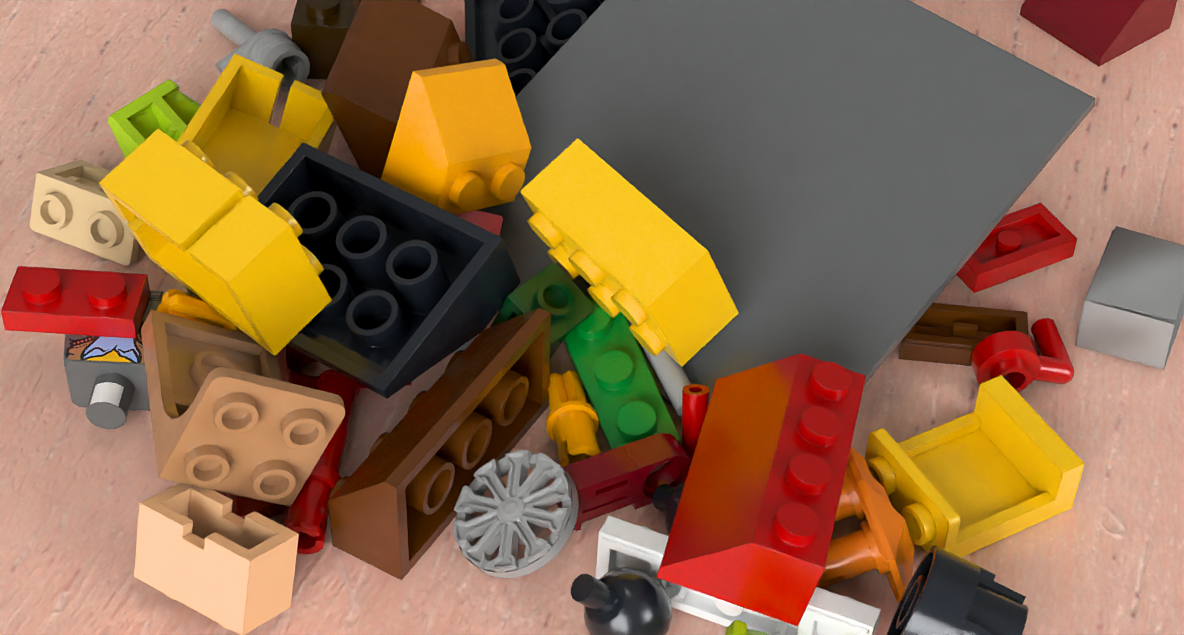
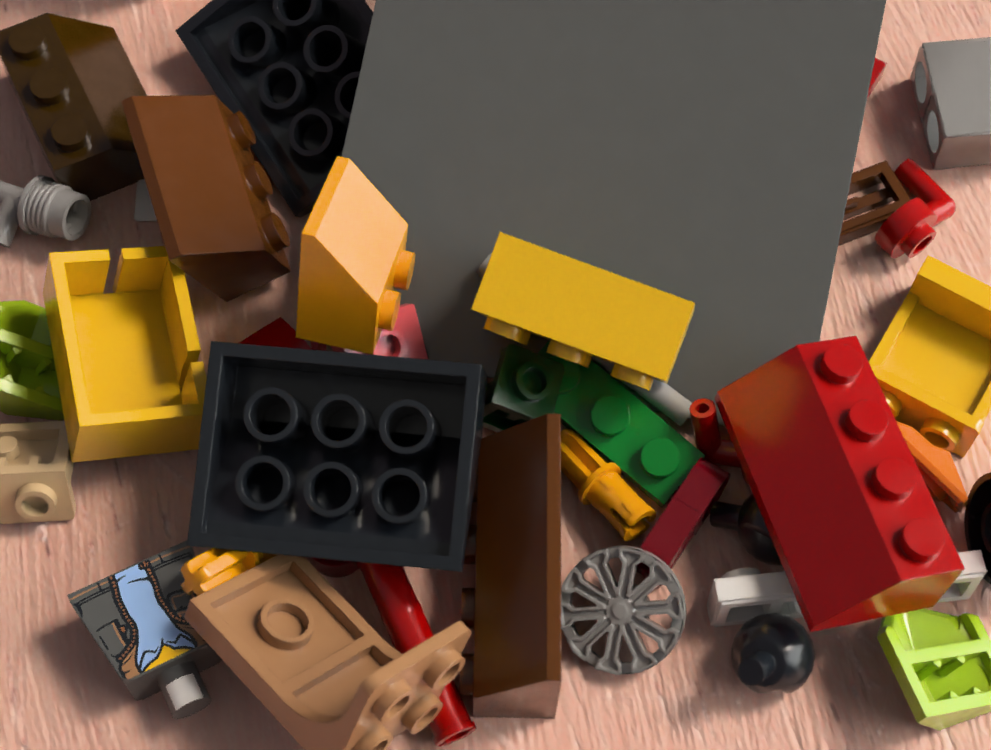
camera: 30 degrees left, 20 degrees up
(76, 302) = (93, 616): red plate -> none
(218, 239) = (223, 505): yellow piece -> none

